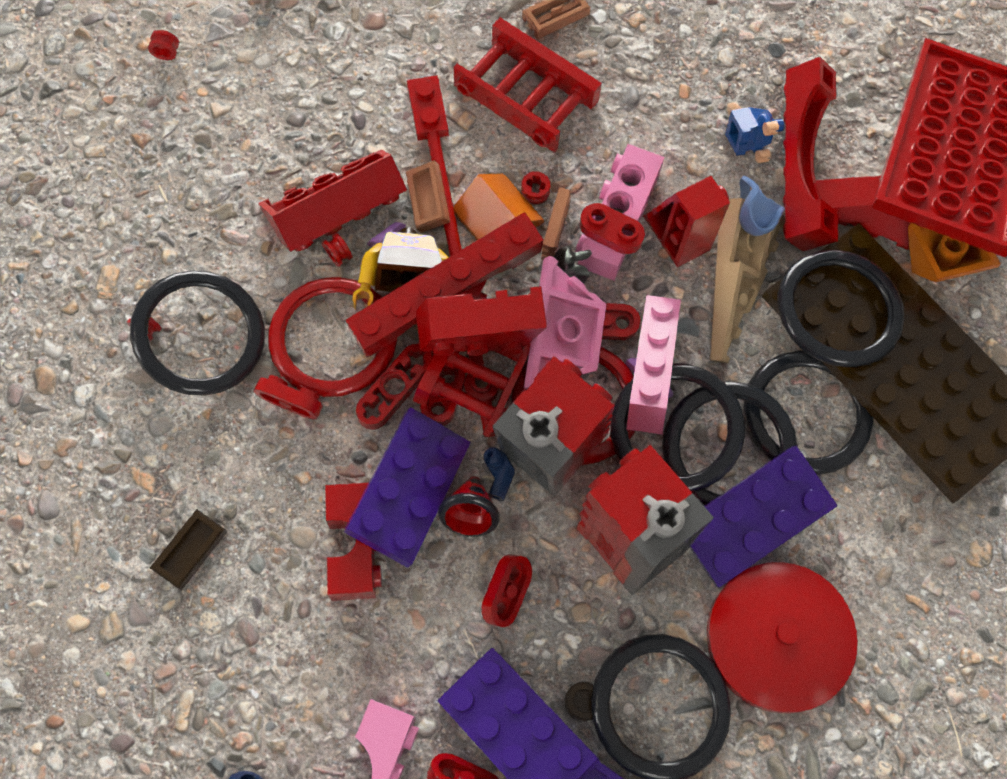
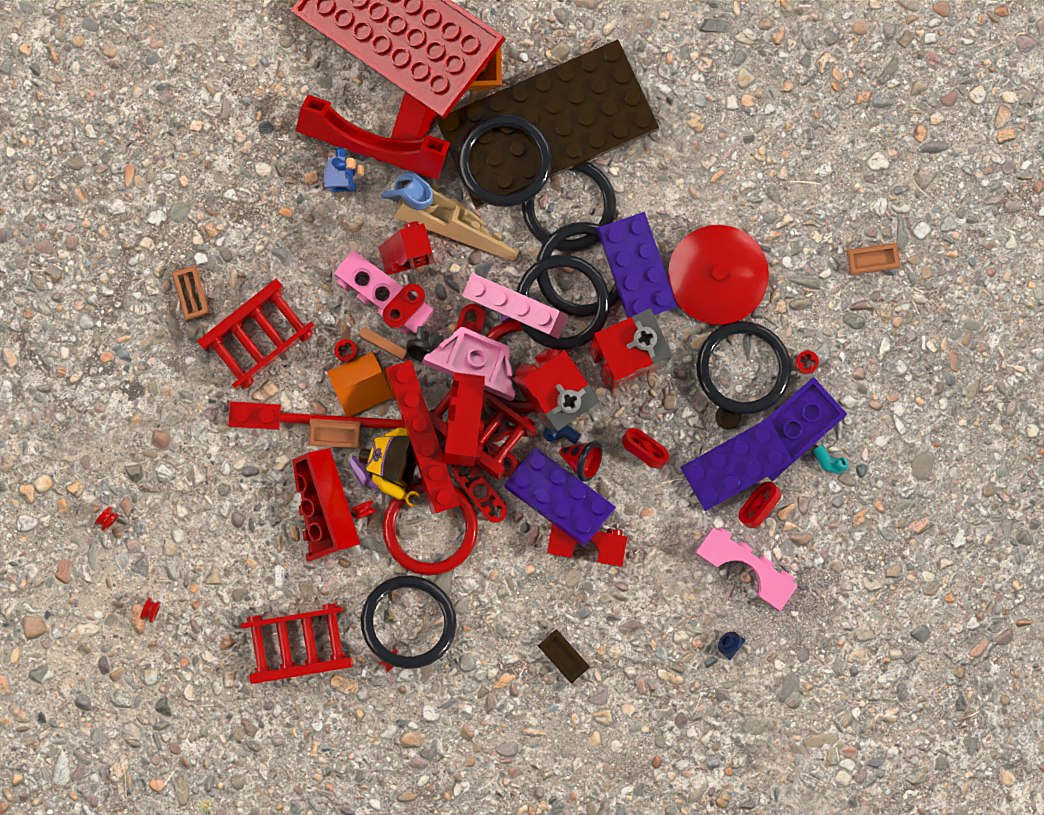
camera: 75 degrees left, 15 degrees up
(122, 233) = (288, 668): none -> red fence
(278, 393) = (465, 575): red plate -> none

